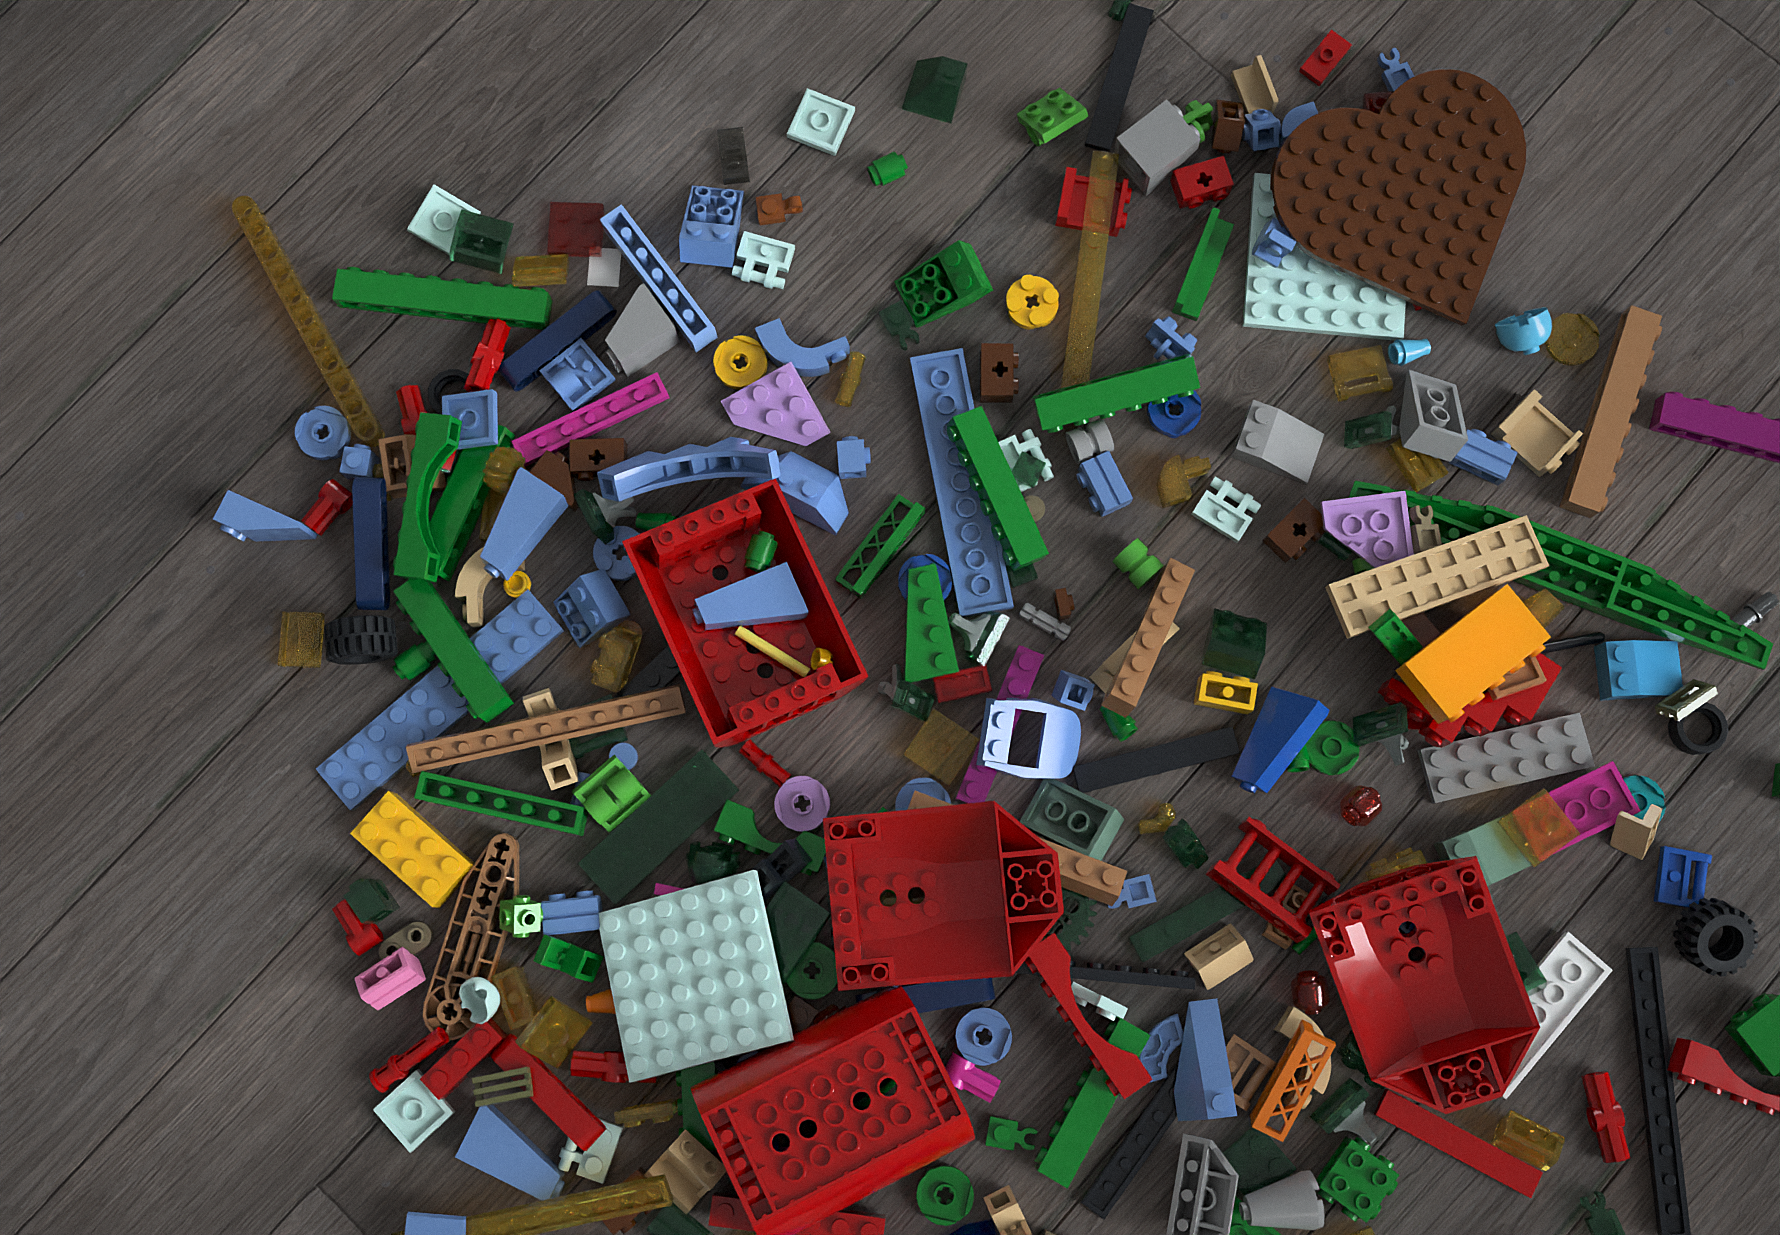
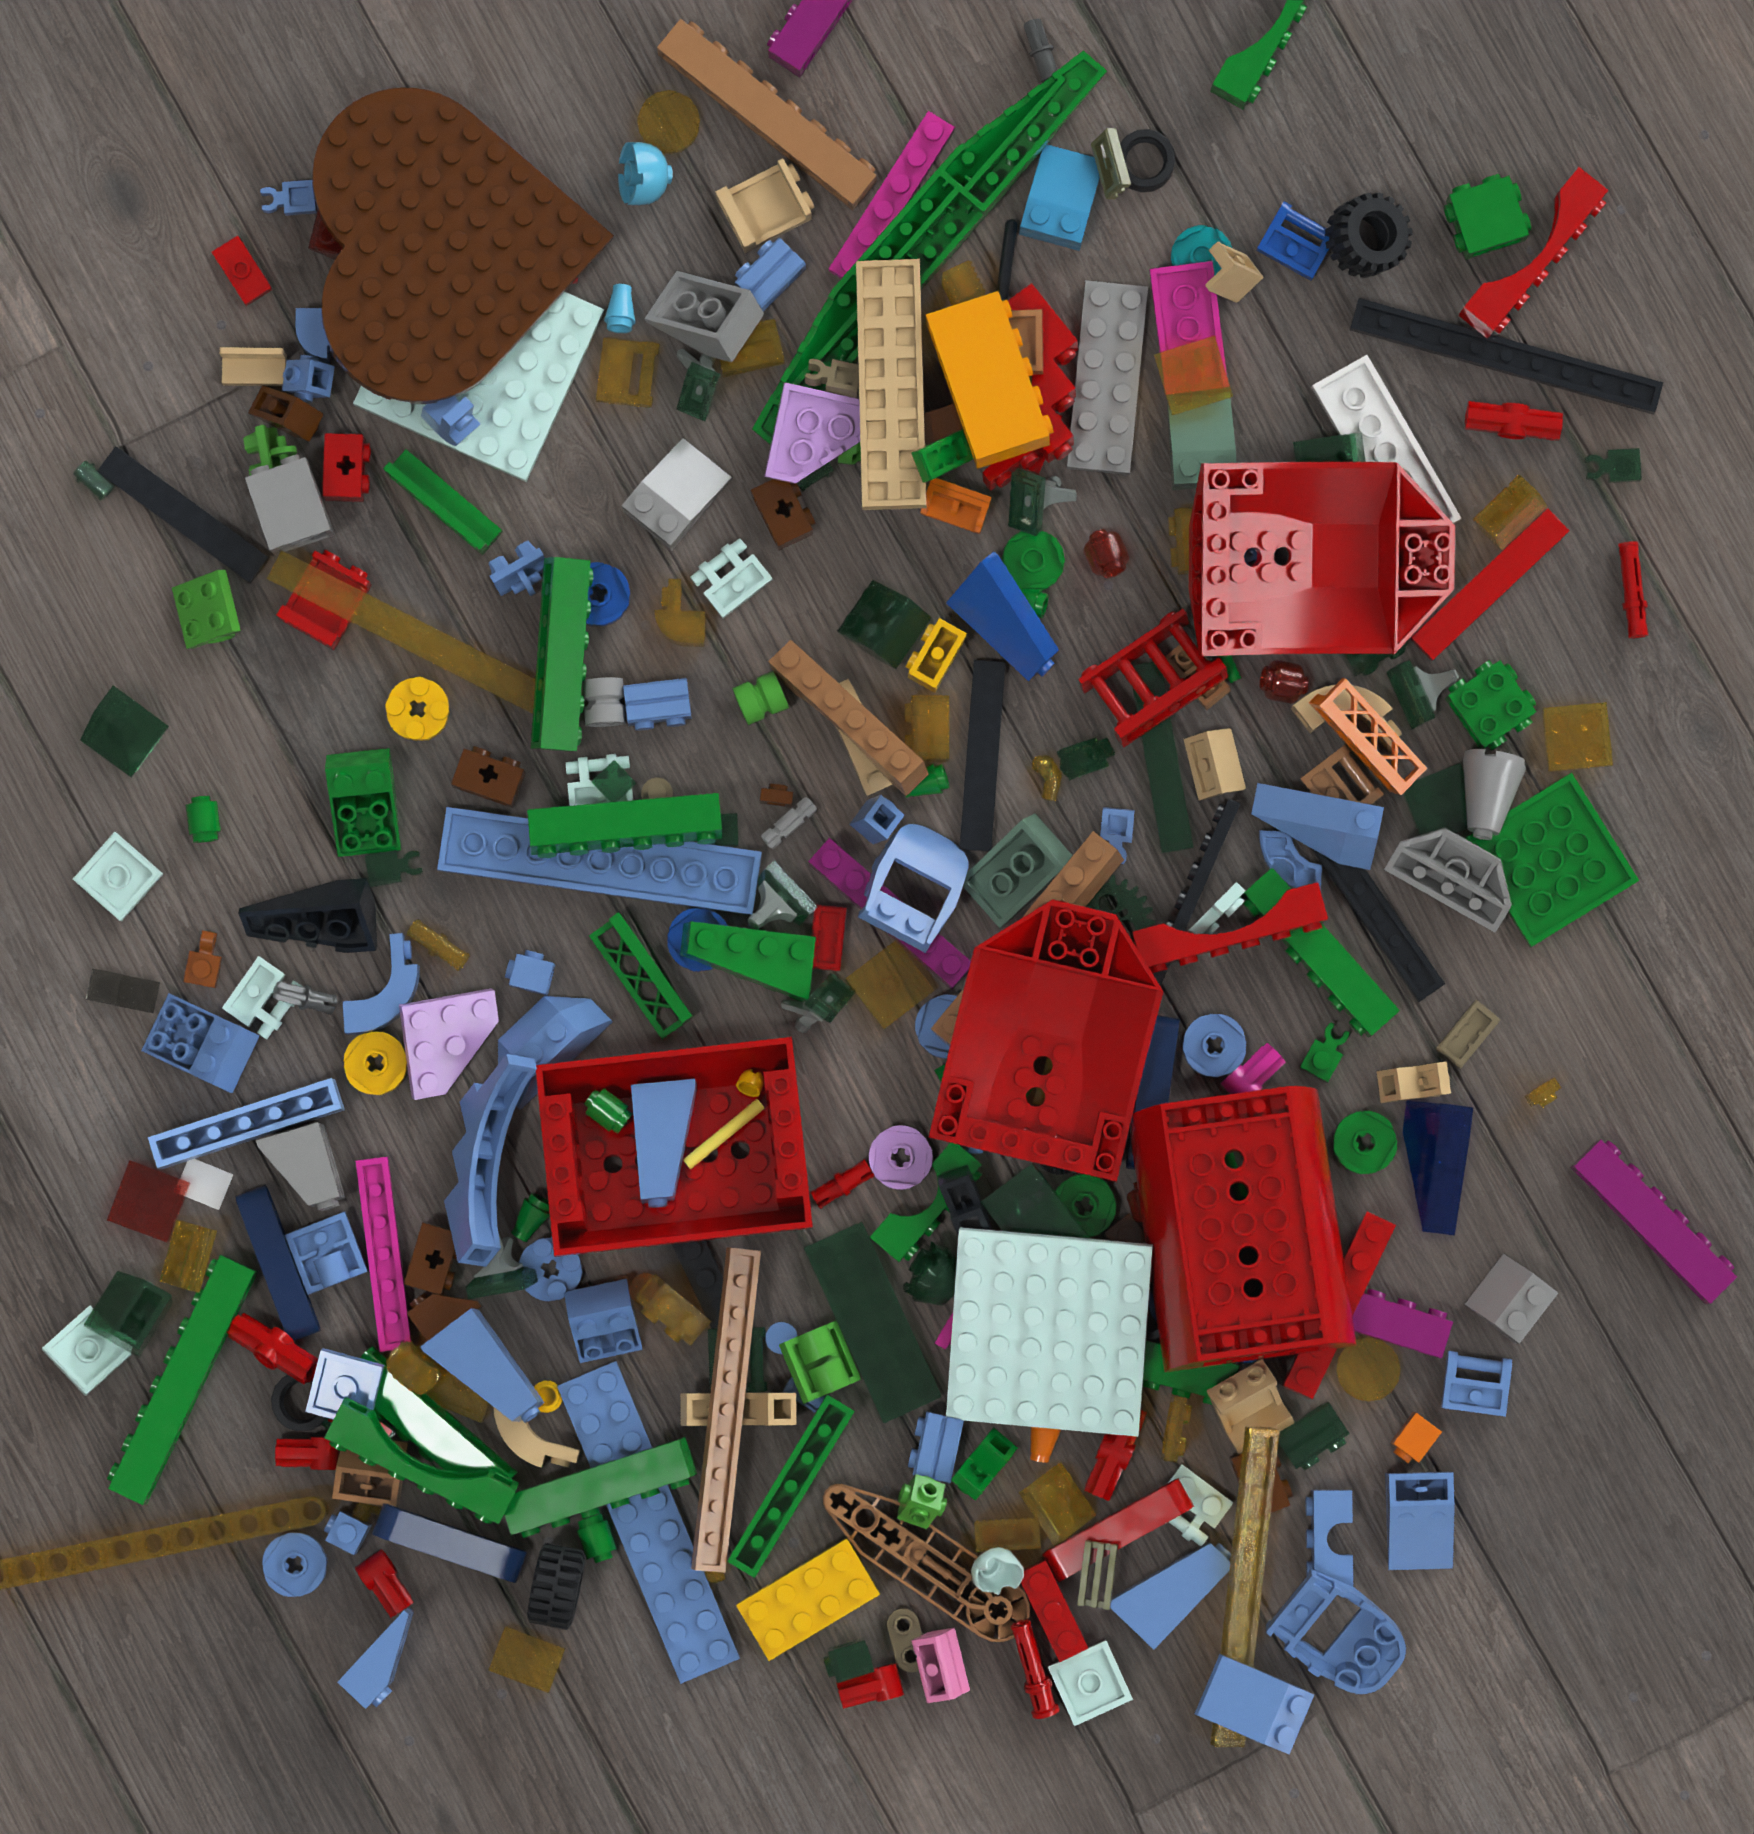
camera: 75 degrees left, 5 degrees up
(773, 289) = (304, 997): none -> dark grey axle
(845, 286) = (328, 914): none -> black wedge
(1163, 708) = (928, 727): none -> clear yellow brick
(1354, 668) = (956, 505): none -> orange hinge
(1624, 542) = (895, 190): none -> dark pink plate

